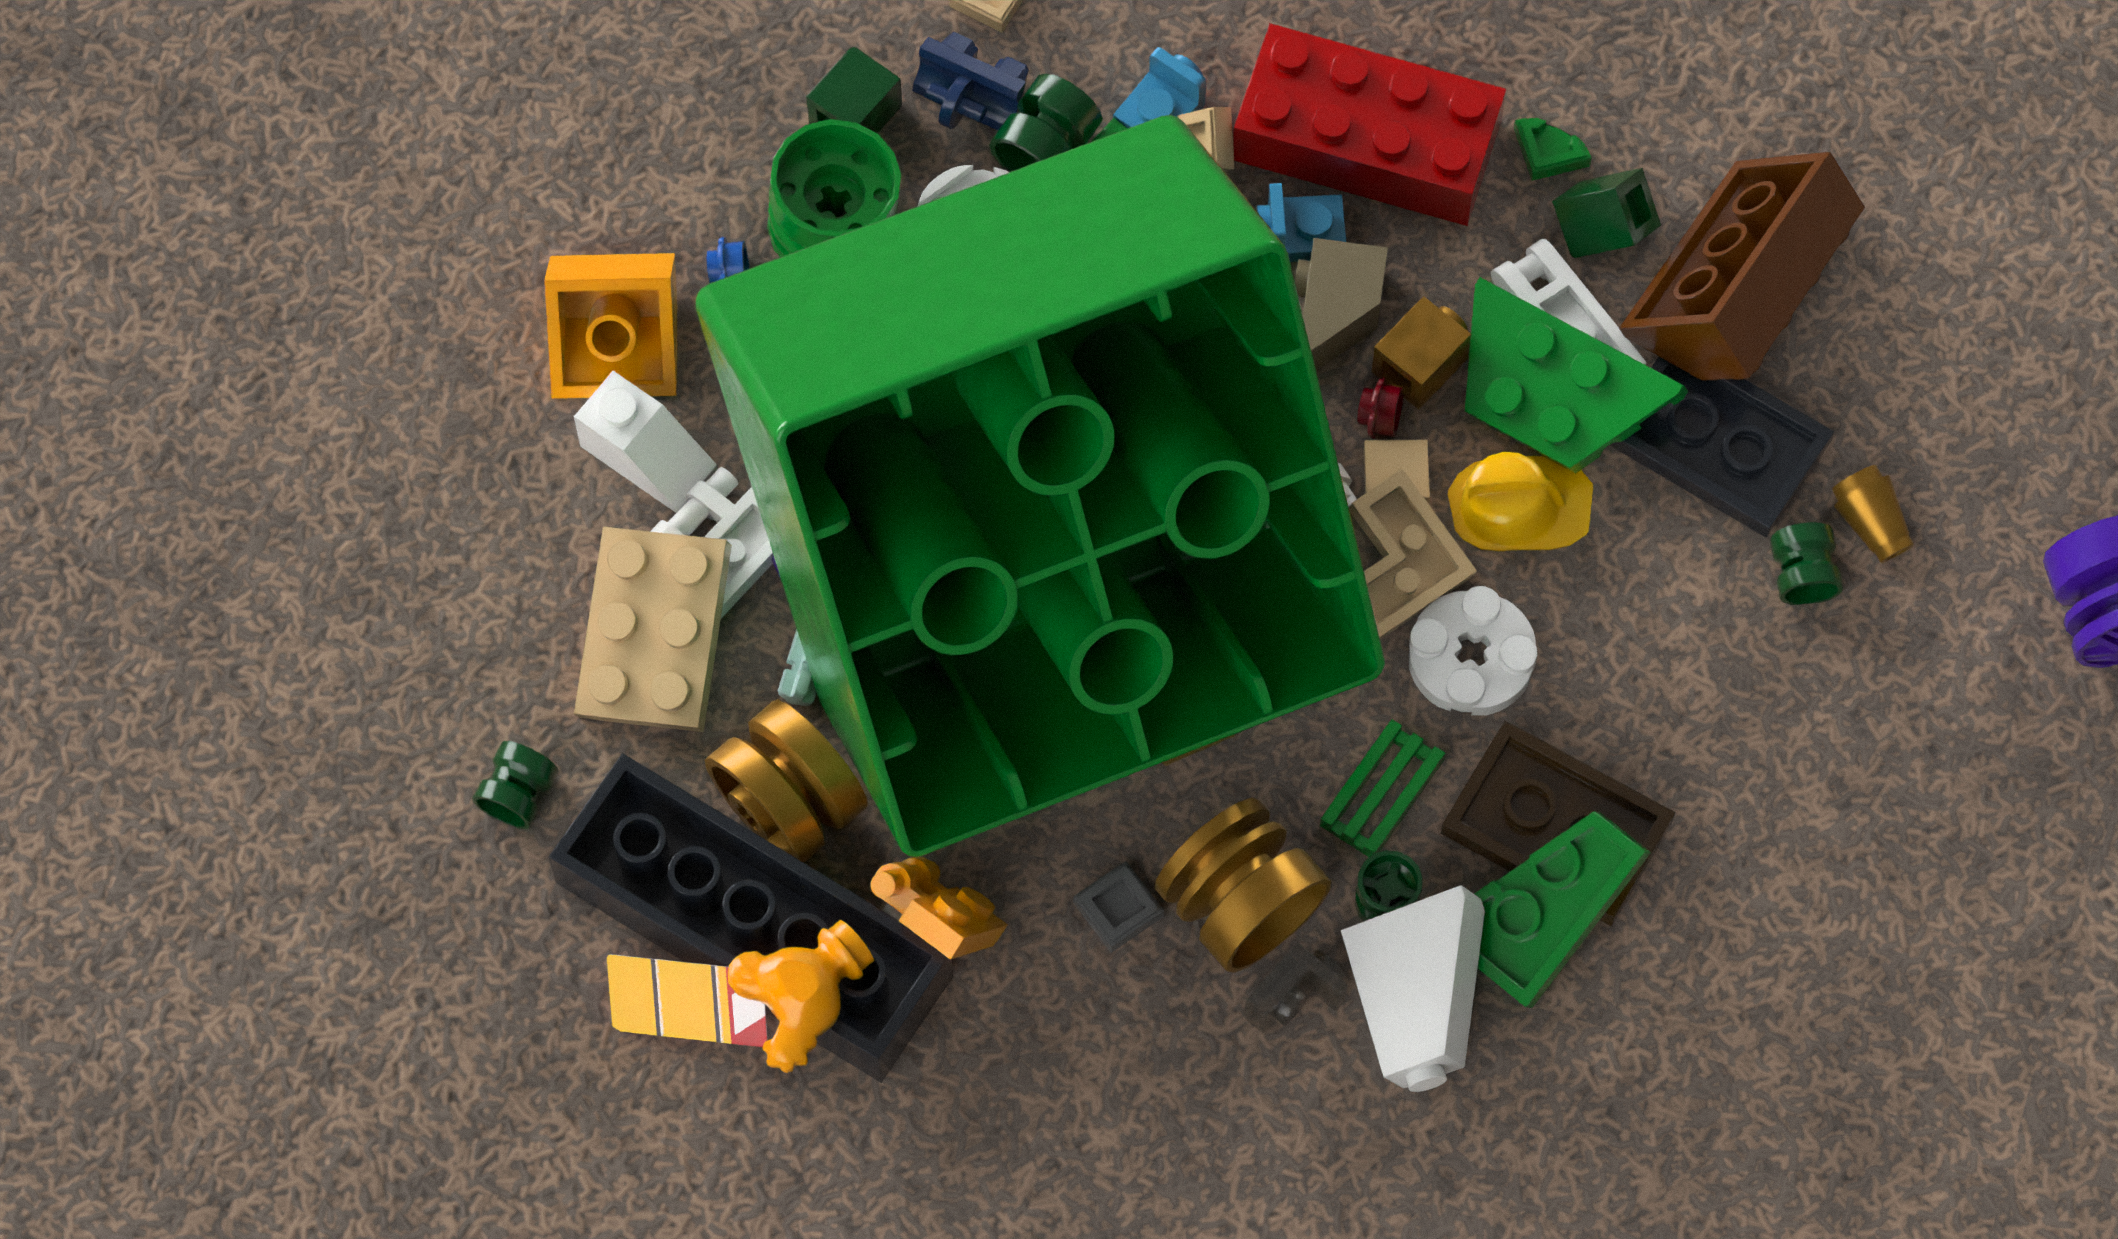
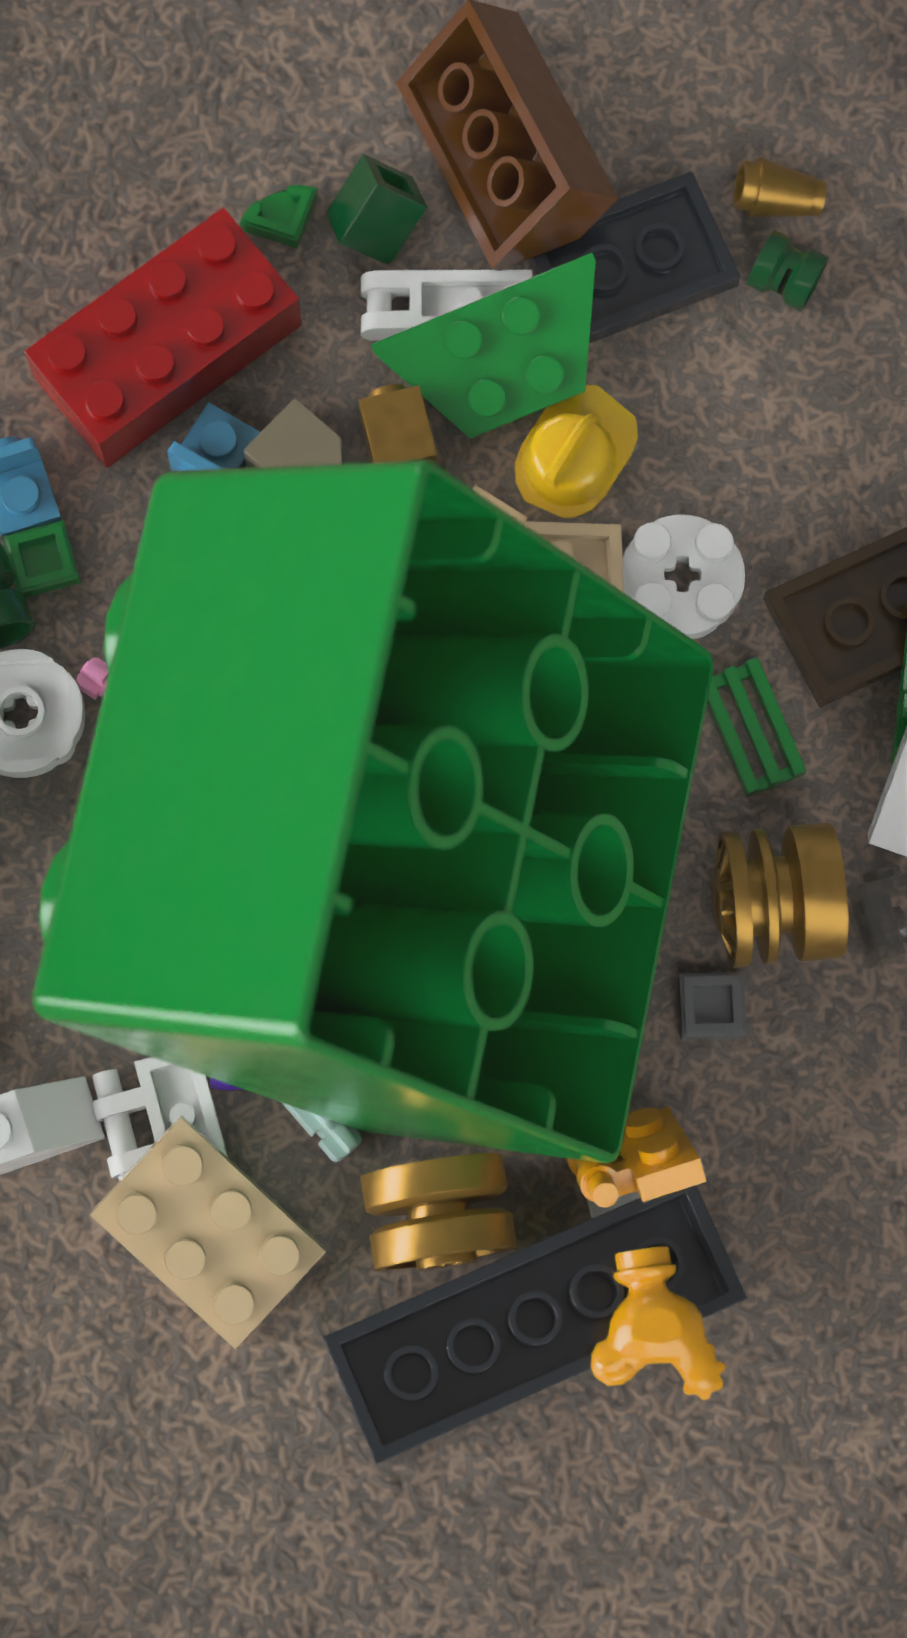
camera: 60 degrees left, 10 degrees up
(515, 784) = (261, 1429): dark green wheel -> none
(681, 1002) = (568, 1430): yellow sticker -> none
(1214, 131) = (86, 477): tan tile -> none
(1390, 877) = (859, 773): dark green wheel -> none

